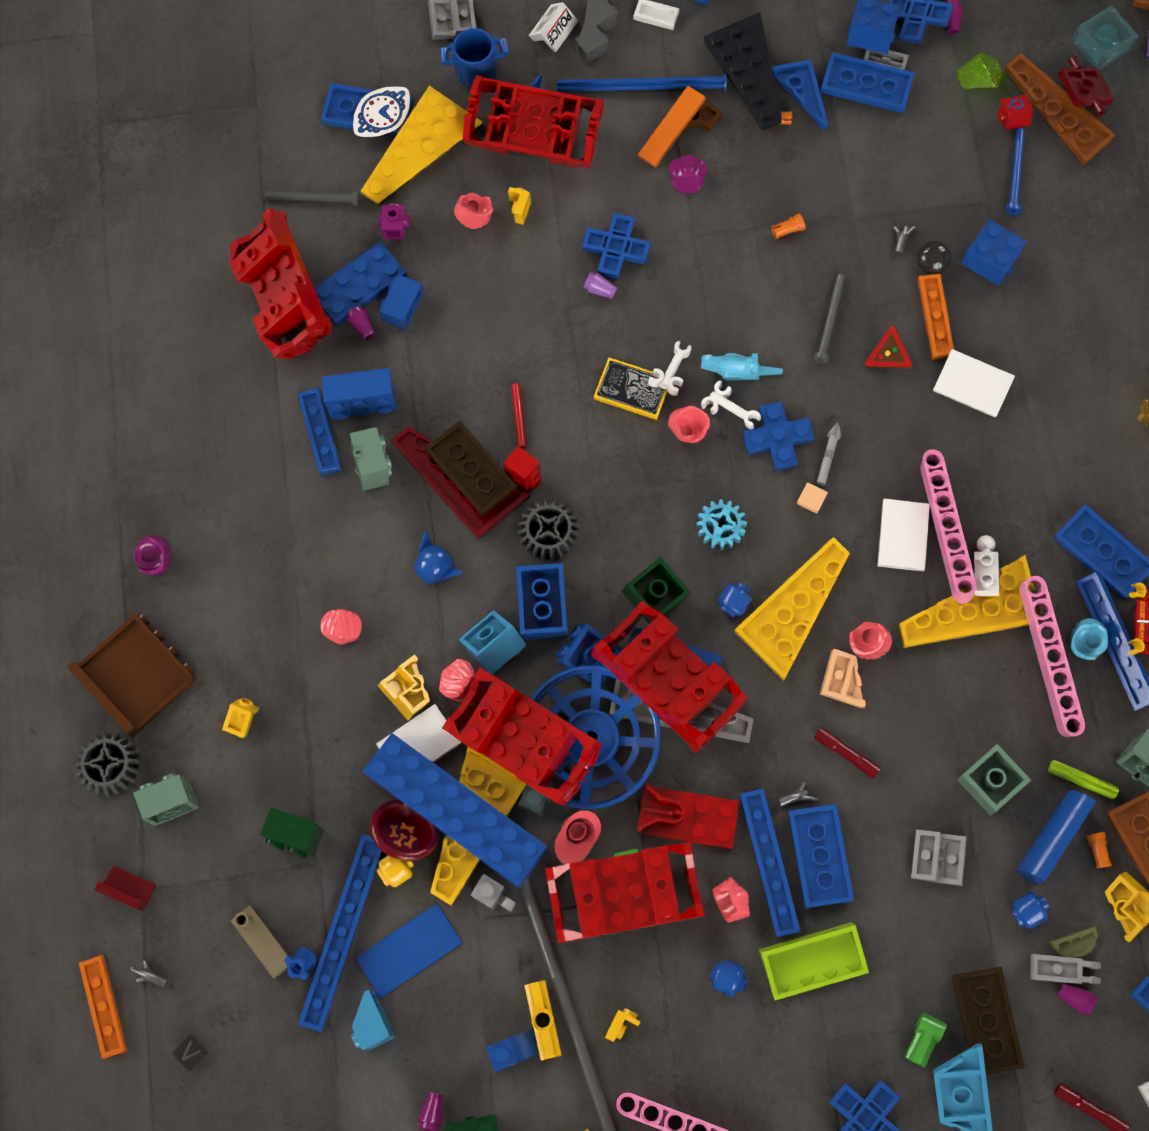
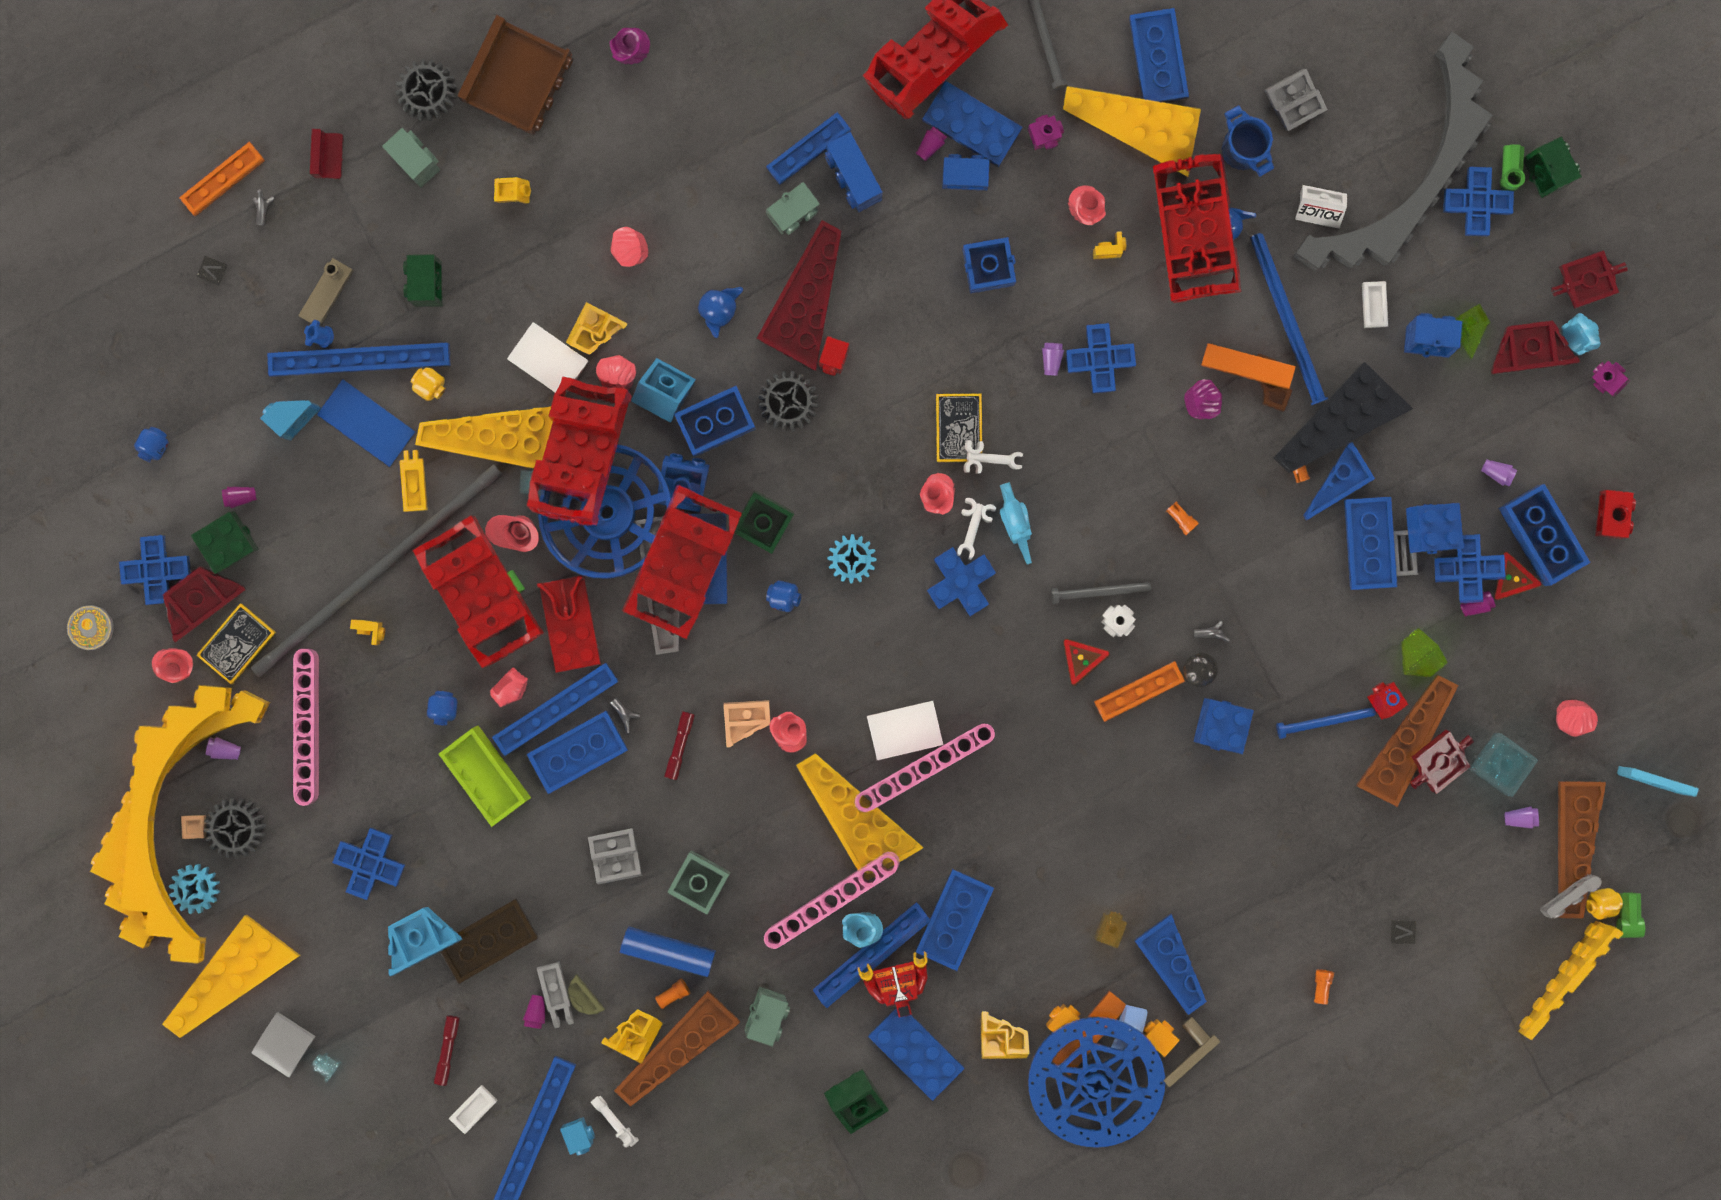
camera: 65 degrees right, 15 degrees up
(381, 111) = (1160, 72): sticker -> none
(402, 832) = (463, 378): dark red piece -> none
(455, 810) = (495, 416): blue brick -> none
(471, 468) = (818, 306): dark brown plate -> none
(488, 922) = (413, 482): none -> yellow hinge
(491, 893) = (438, 475): light grey brick -> none
(493, 307) = (989, 265): none -> blue brick
(513, 1050) = (314, 545): blue slope -> none
(518, 414) = (896, 328): red bar -> none
(539, 1003) = (335, 568): yellow piece -> none
(786, 617) = (785, 649): yellow wing -> none
(812, 498) = (910, 634): light nougat tile -> none
(834, 435) = (980, 634): light grey piece -> none
(864, 309) = (1112, 627): none -> white brick
(927, 1034) = (458, 893): bright green piece -> none
(973, 383) = (1080, 748): white tile -> none
(986, 567) = (896, 815): white plate -> none
(1030, 910) = (595, 949): blue head -> none
(1083, 779) = (731, 965): lime axle -> none

